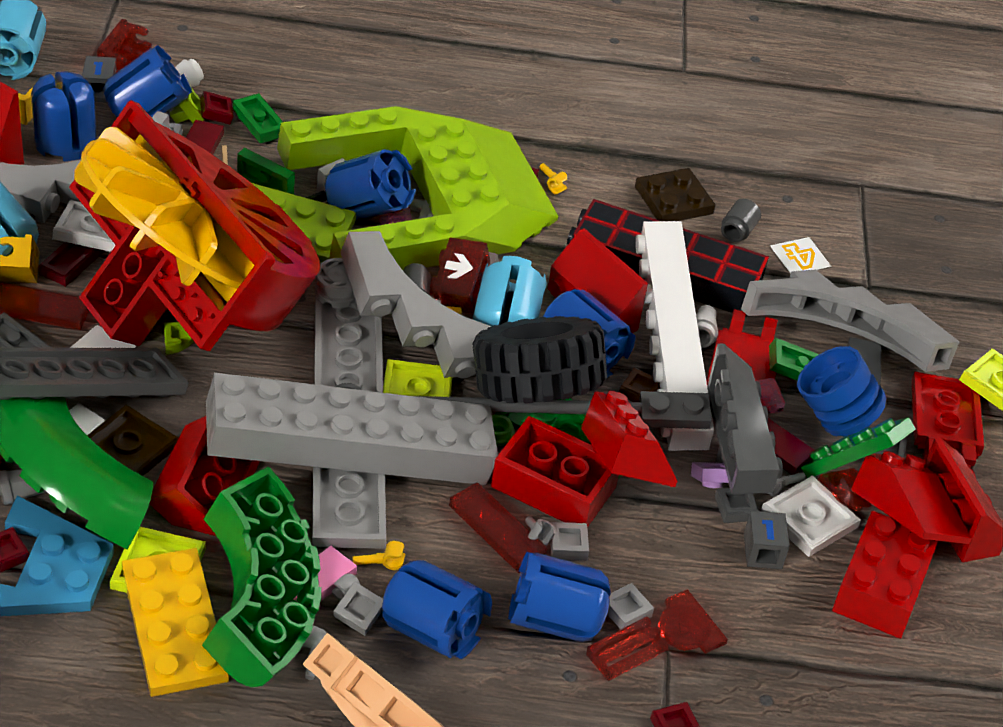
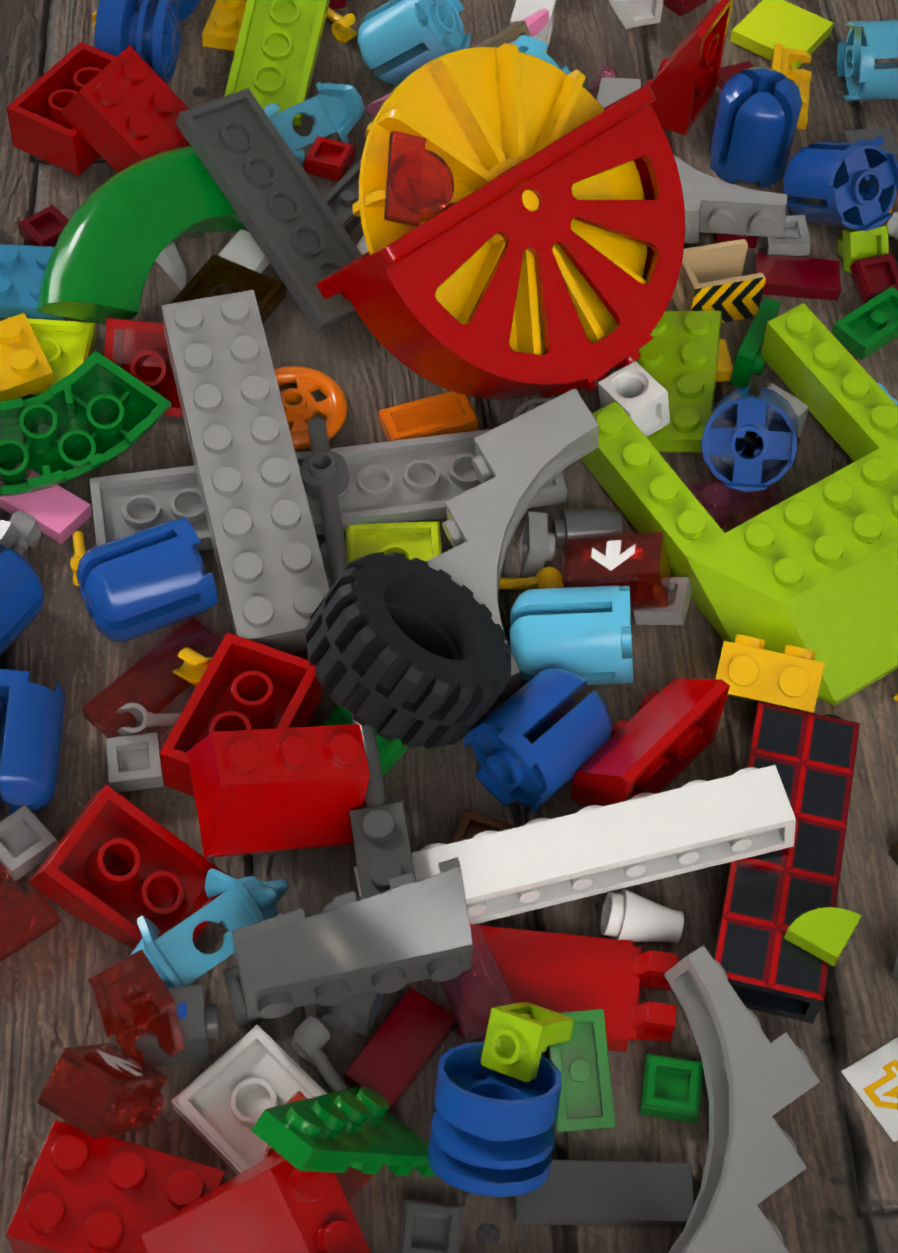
camera: 85 degrees right, 10 degrees up
(214, 223) = (416, 182): none -> clear red piece
(287, 353) = (428, 417): none -> orange tile
(320, 228) = (638, 395): none -> white brick
(419, 500) = (145, 581): none -> blue cylinder
(497, 495) = (193, 665): none -> yellow hand
(551, 229) = (770, 676): none -> yellow brick
(658, 552) = (124, 867): none -> red slope
(728, 533) = (240, 905): none -> medium azure piece
(734, 242) = (824, 932): none -> lime tile
(784, 516) = (136, 1004): none -> clear red hinge
(799, 363) = (520, 1035): none -> lime bracket
(804, 336) = (671, 1088): none -> green tile
(820, 561) = (103, 1091): none -> clear red brick

